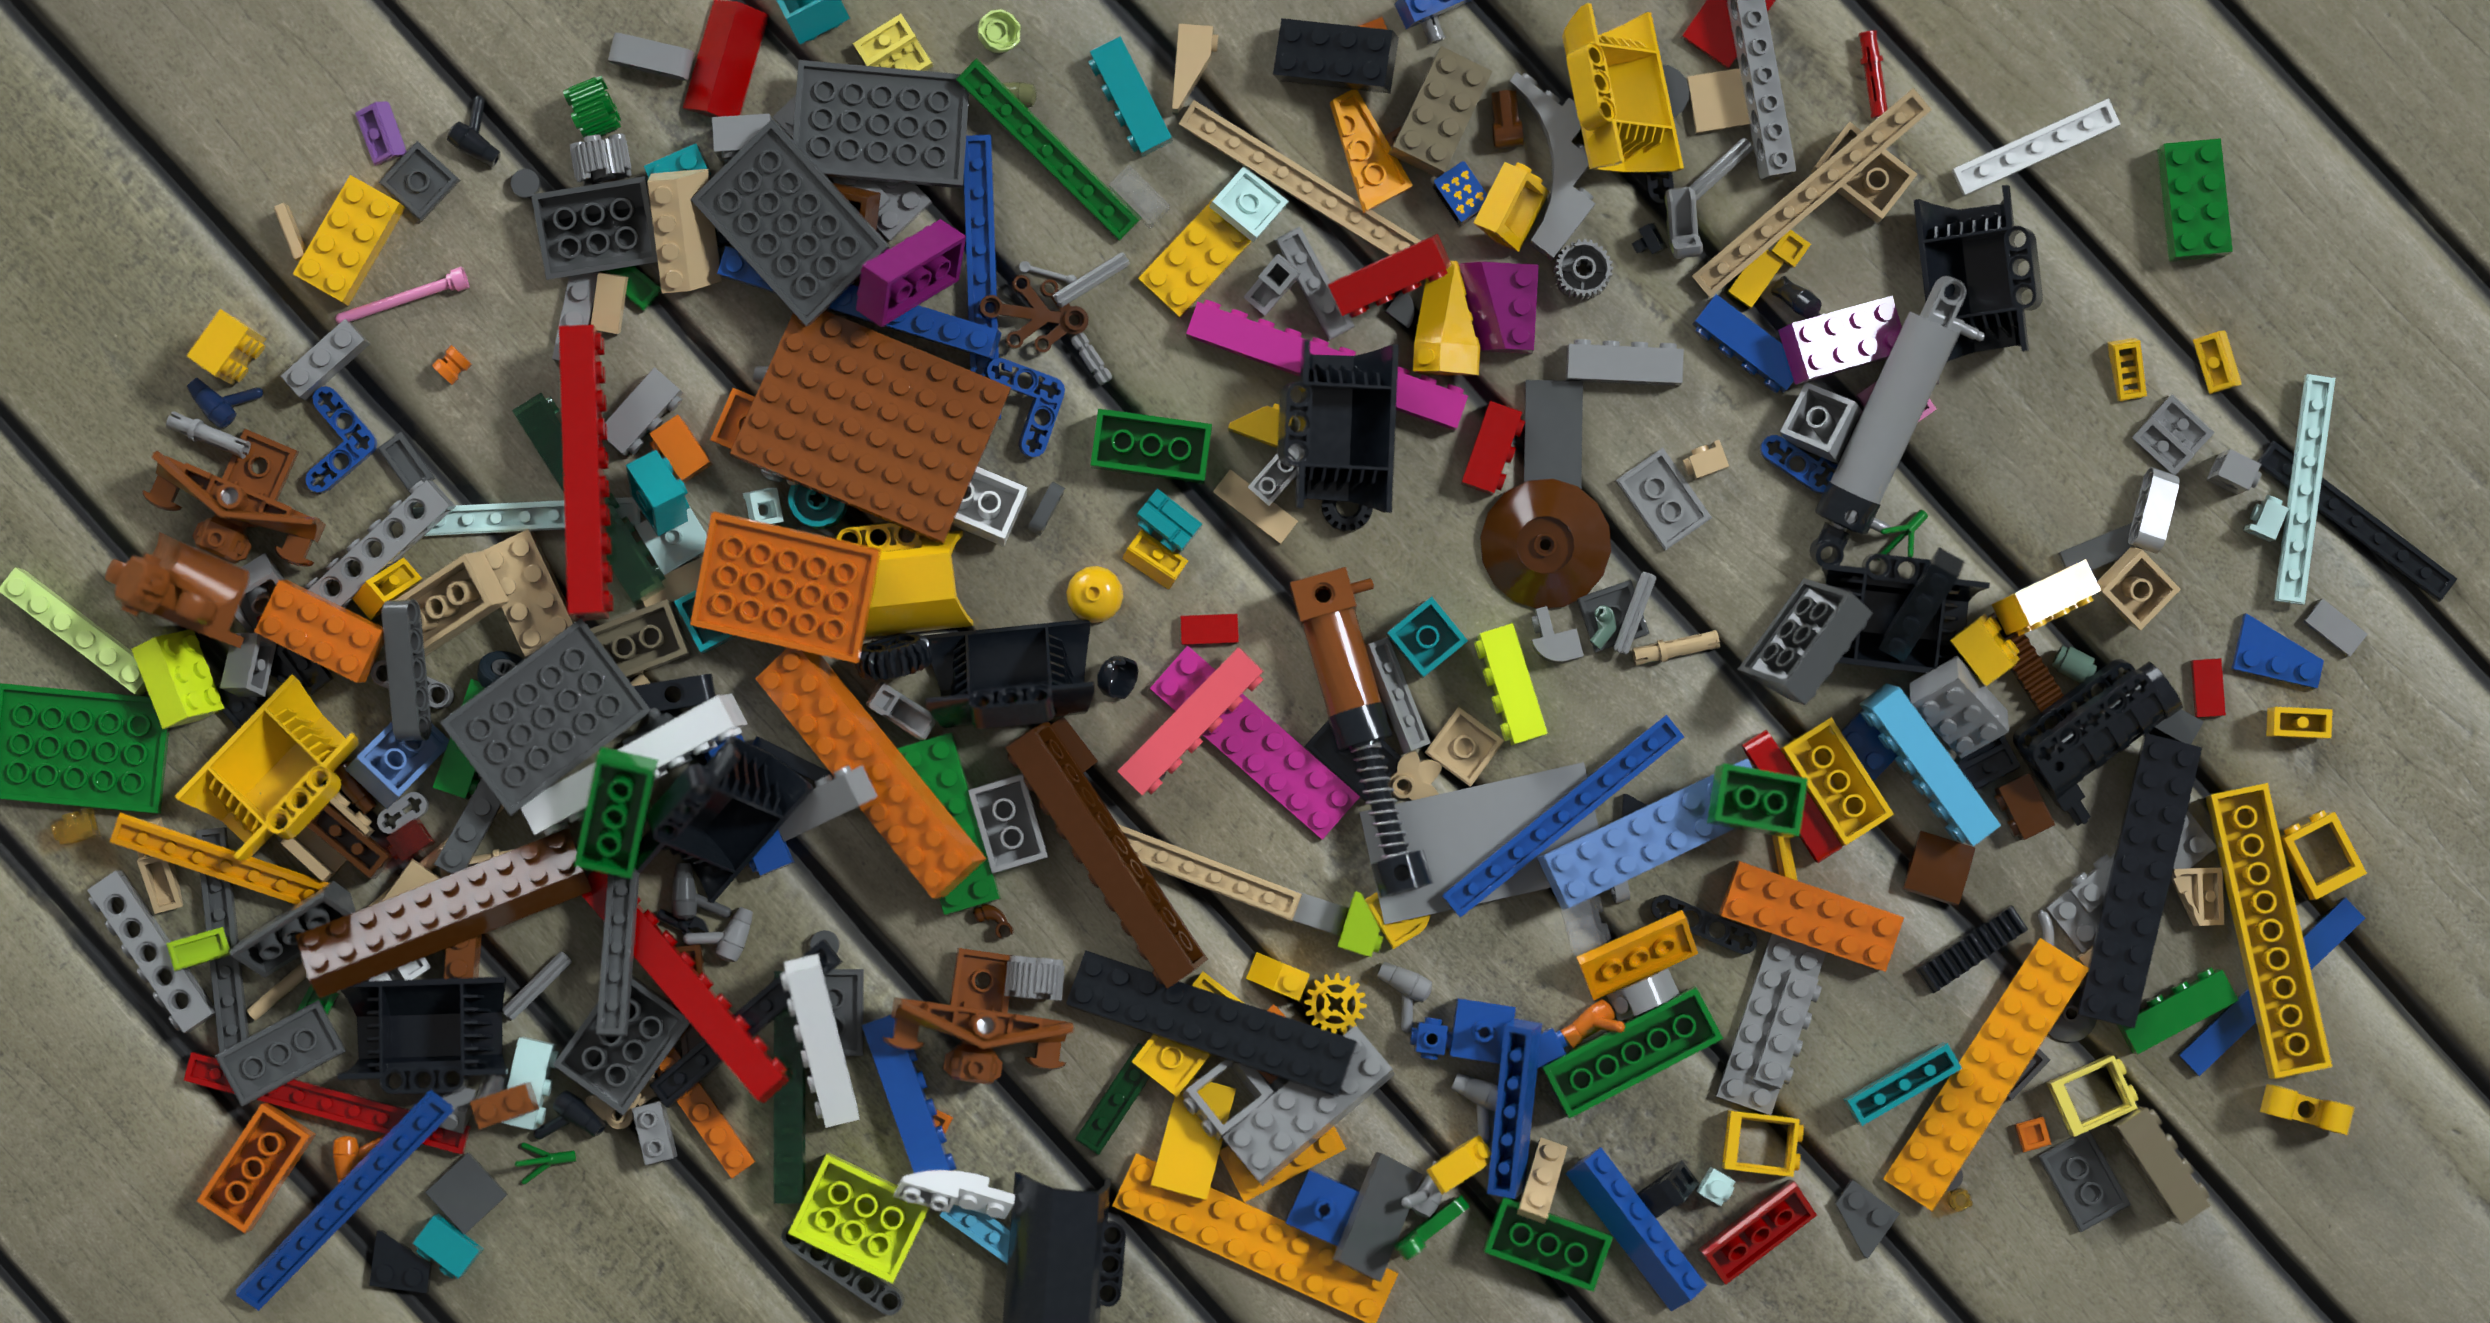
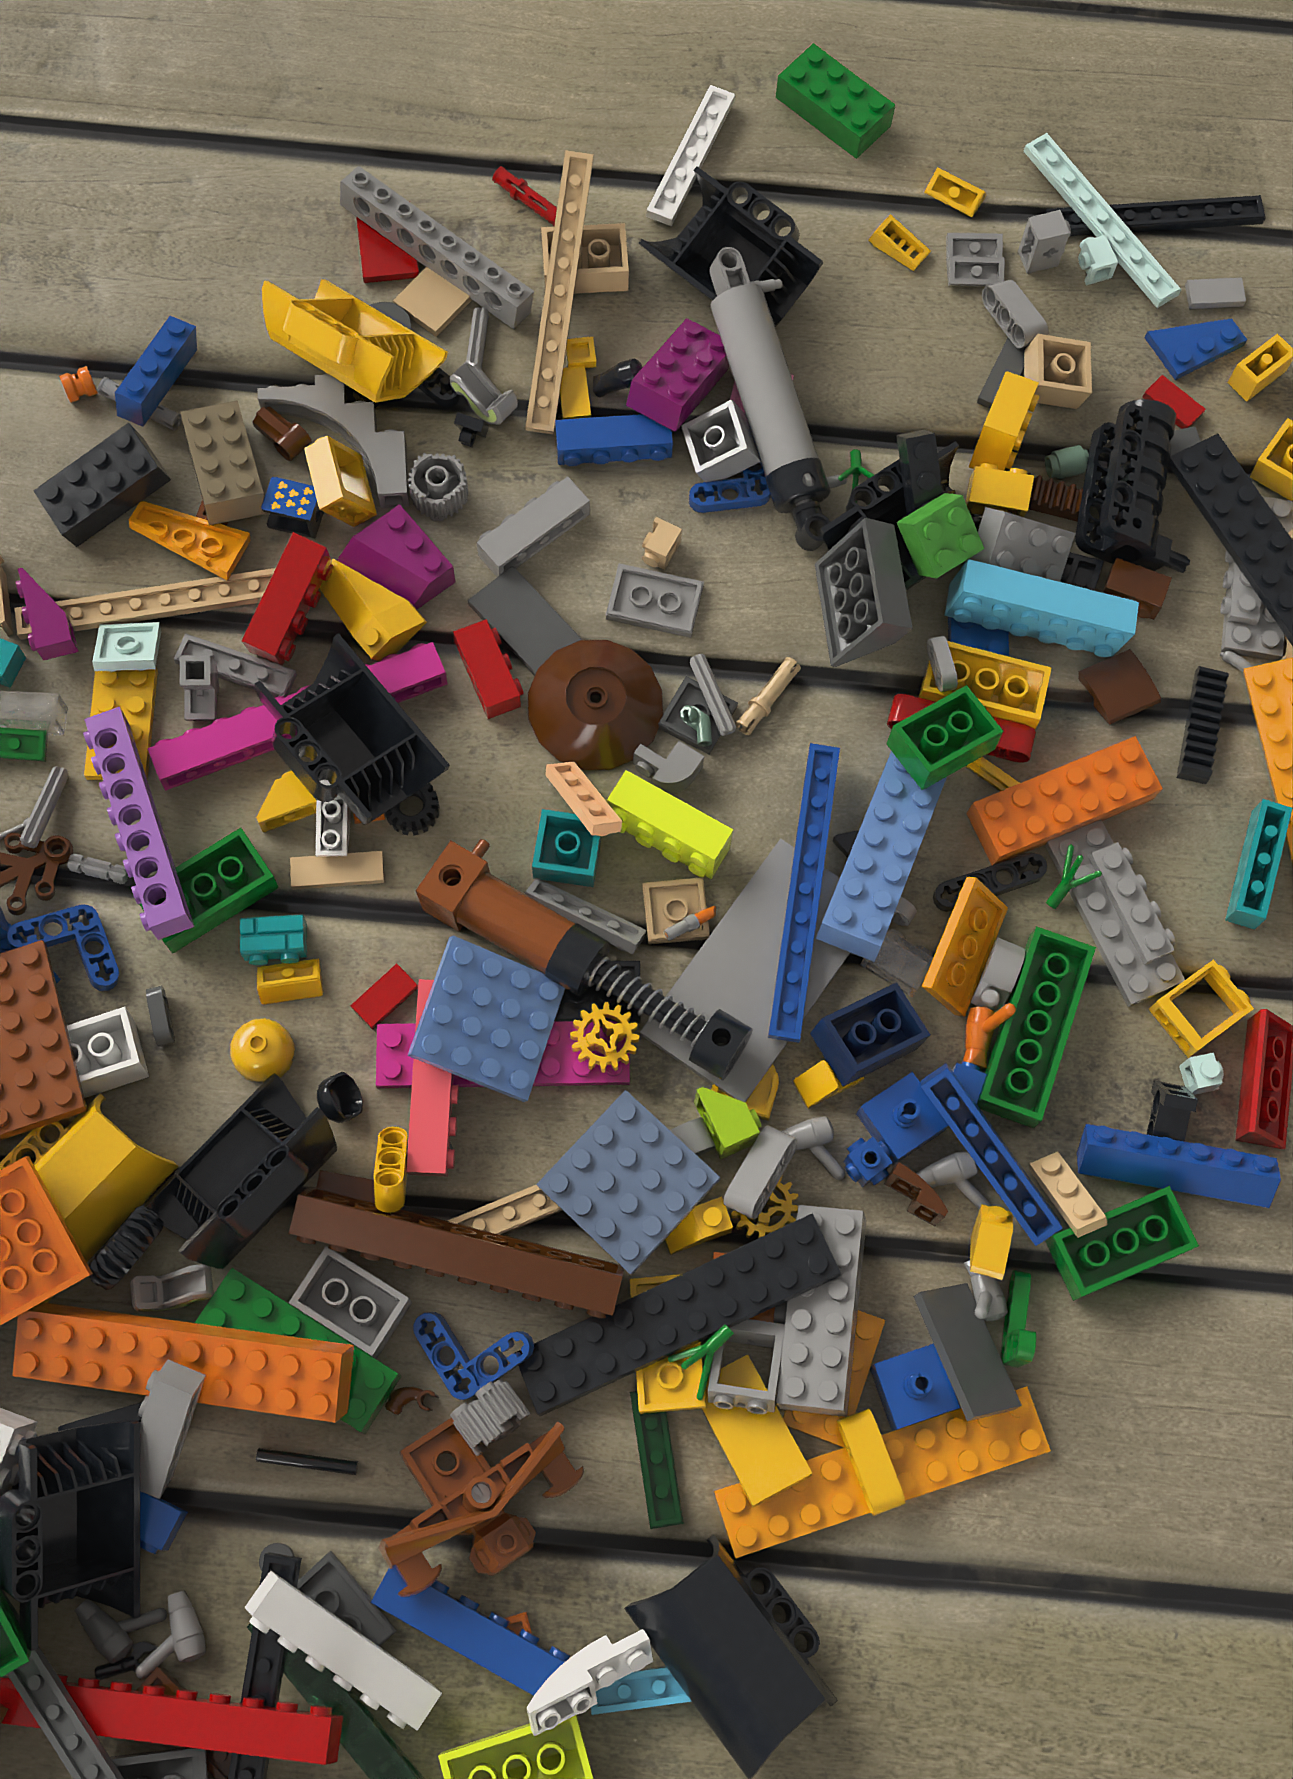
camera: 45 degrees left, 15 degrees down
(895, 899) = (307, 1461): none -> black bar
(1049, 936) = (471, 1368): none -> blue beam
(1109, 760) = (390, 1169): none -> yellow beam
(1112, 454) = (172, 914): none -> medium lavender brick
(1203, 1061) = (698, 1352): none -> green plant
(1207, 139) = (50, 626): none -> magenta slope
(1250, 1227) = (871, 1462): none -> yellow beam
(1257, 909) = (628, 1182): none -> sand blue plate
(1261, 715) = (487, 1019): none -> medium blue plate
(1317, 791) = (593, 1041): none -> yellow gear
(1350, 982) = (760, 1172): none -> light grey beam
(1402, 309) = (322, 628): dark grey tile -> none
(1418, 777) = (659, 963): tan plate -> none
(1441, 1096) = (924, 1202): none -> reddish brown slope
(1459, 958) = (820, 1084): none -> yellow slope
(1464, 767) = (690, 923): none -> light grey piece
(1467, 613) = (583, 798): none -> light nougat plate
(1511, 956) = (869, 1034): none -> dark blue brick
(1753, 975) = (1068, 874): none -> green plant
(1812, 743) = (942, 664): none -> light grey beam
(1897, 651) = (940, 535): none -> bright green brick

